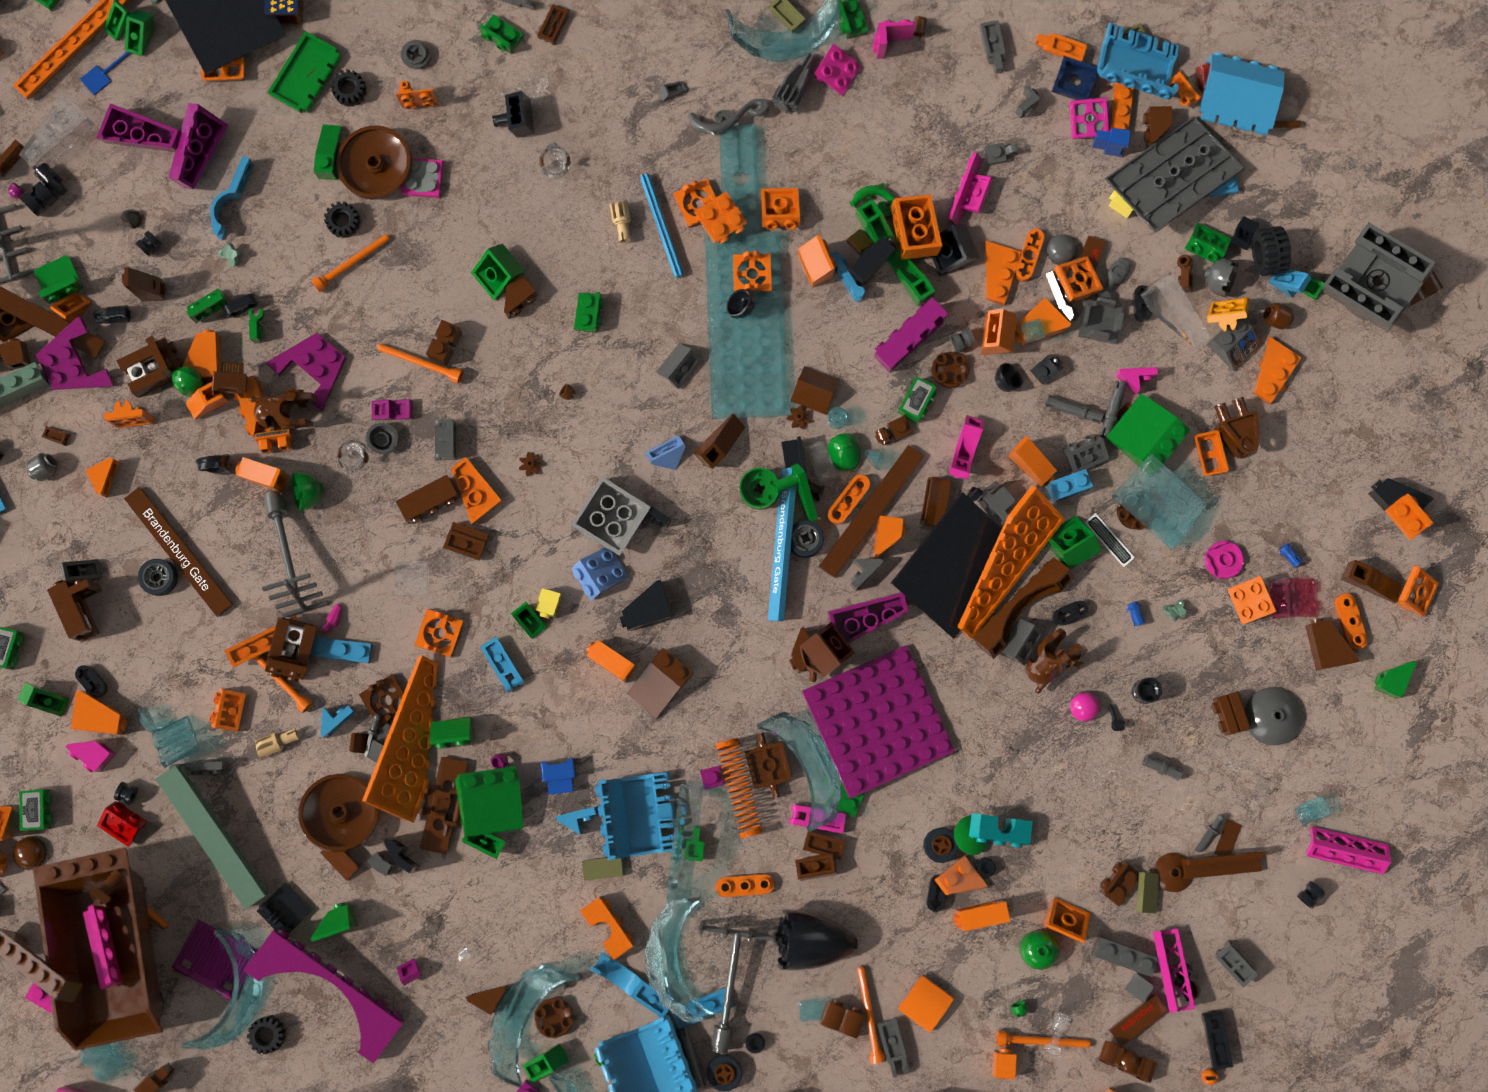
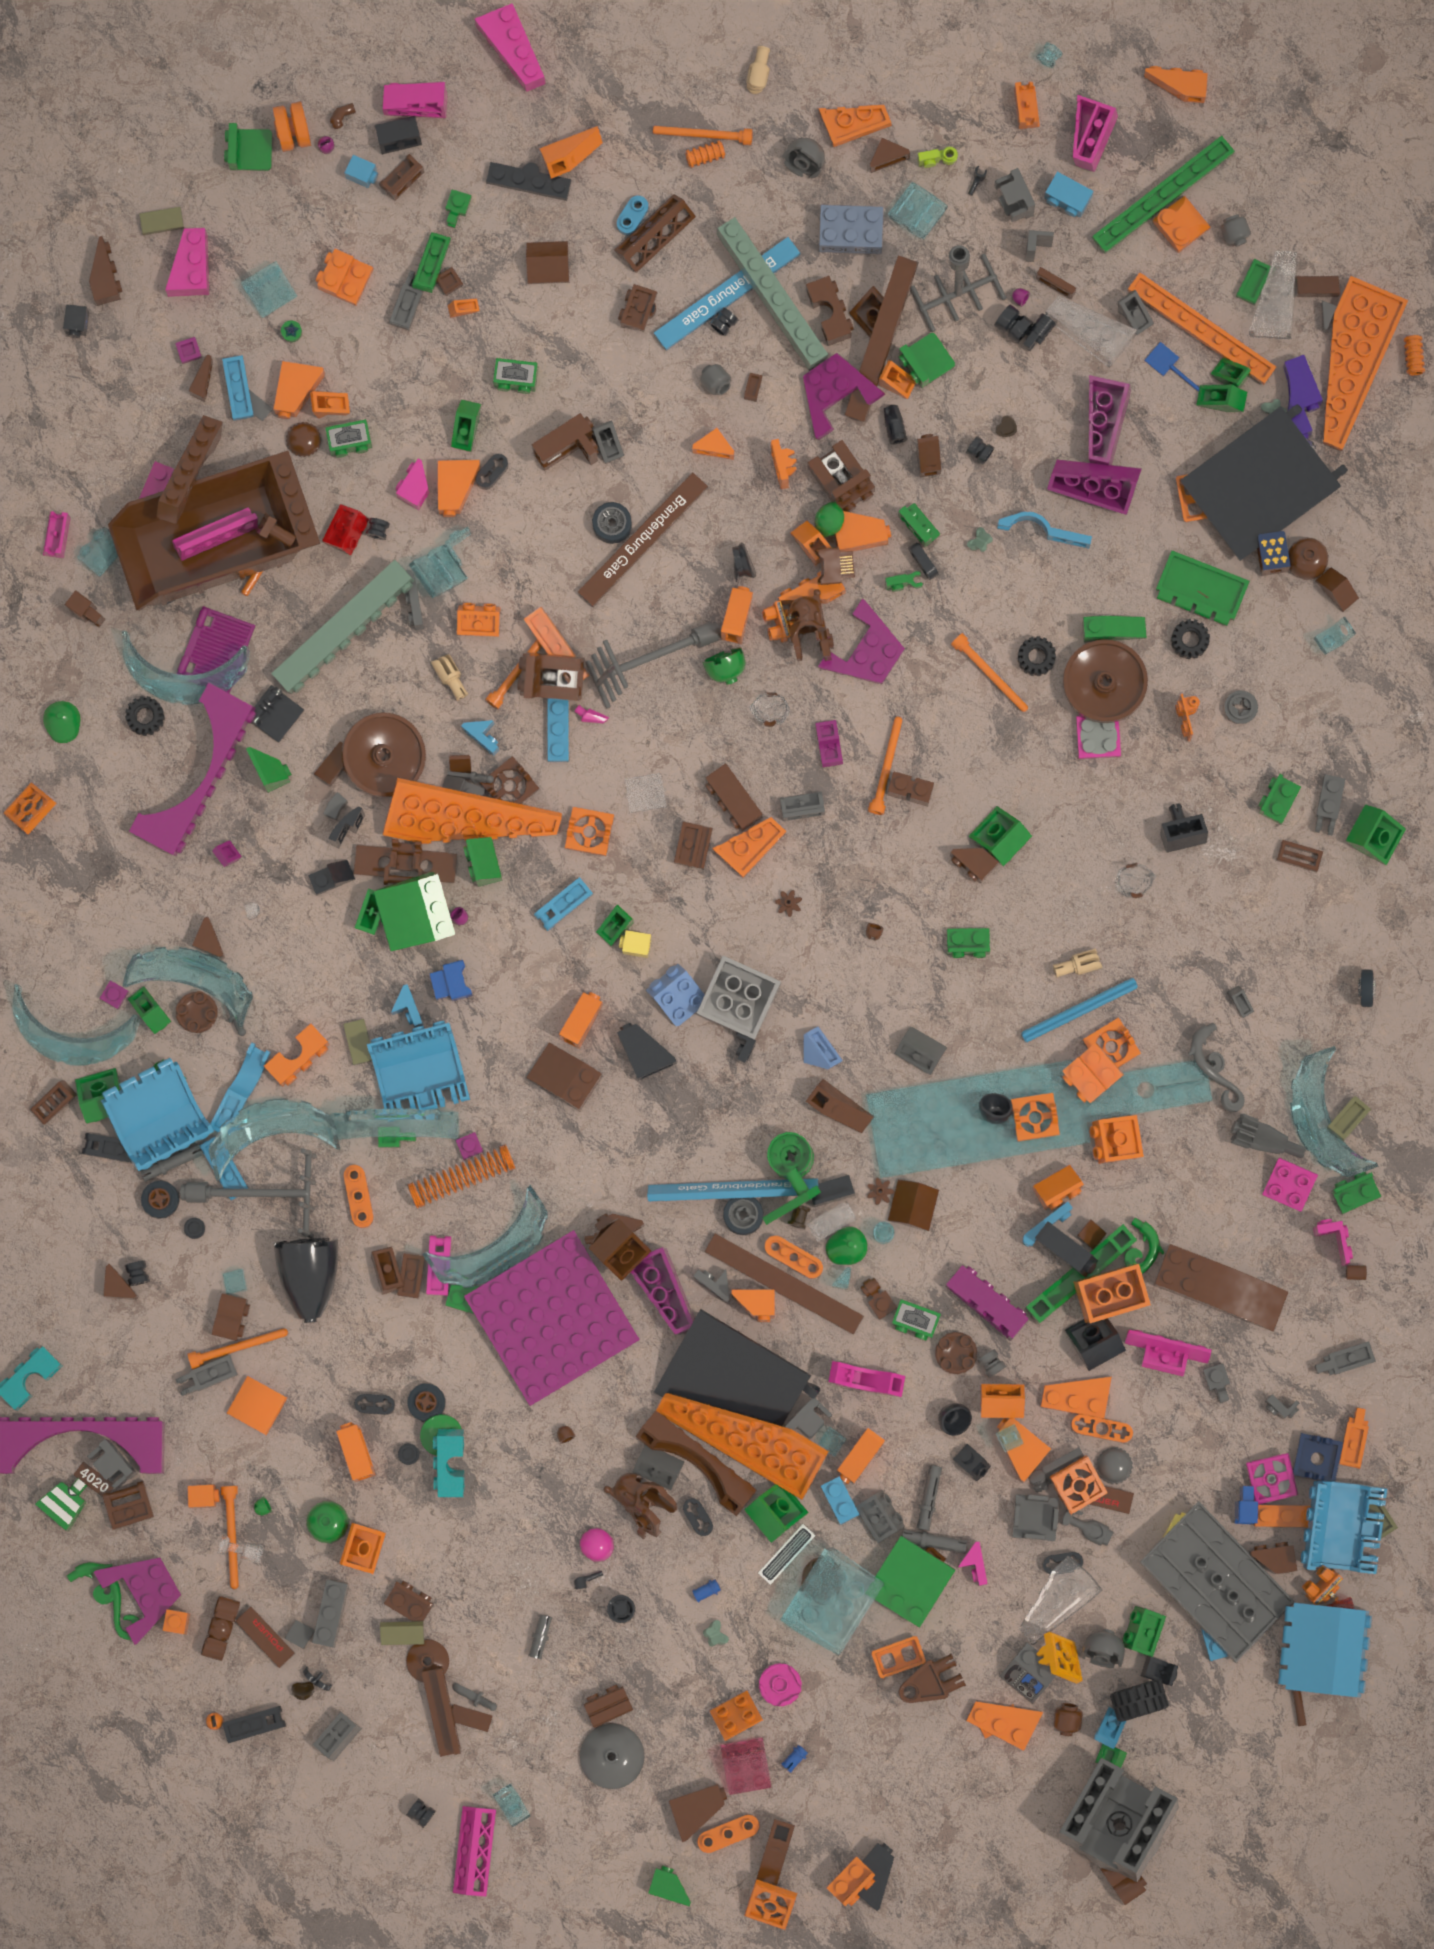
camera: 90 degrees right, 0 degrees up
(46, 93) = (1135, 312): none -> dark grey slope
(382, 438) = (795, 737): dark grey hat -> none
(445, 875) = (331, 877): none -> black slope
(768, 765) = (489, 1205): reddish brown plate -> none
(918, 140) = (1220, 1287): none -> reddish brown slope
(935, 501) = (805, 1353): reddish brown piece -> none
(960, 878) = (393, 1427): orange wing -> none
(983, 722) = (565, 1434): none -> reddish brown hinge
(1016, 486) = (832, 1441): none -> clear light blue slope
(1167, 975) = (321, 1659): dark pink fence -> none
(1186, 277) = (1099, 1609): reddish brown plate -> none

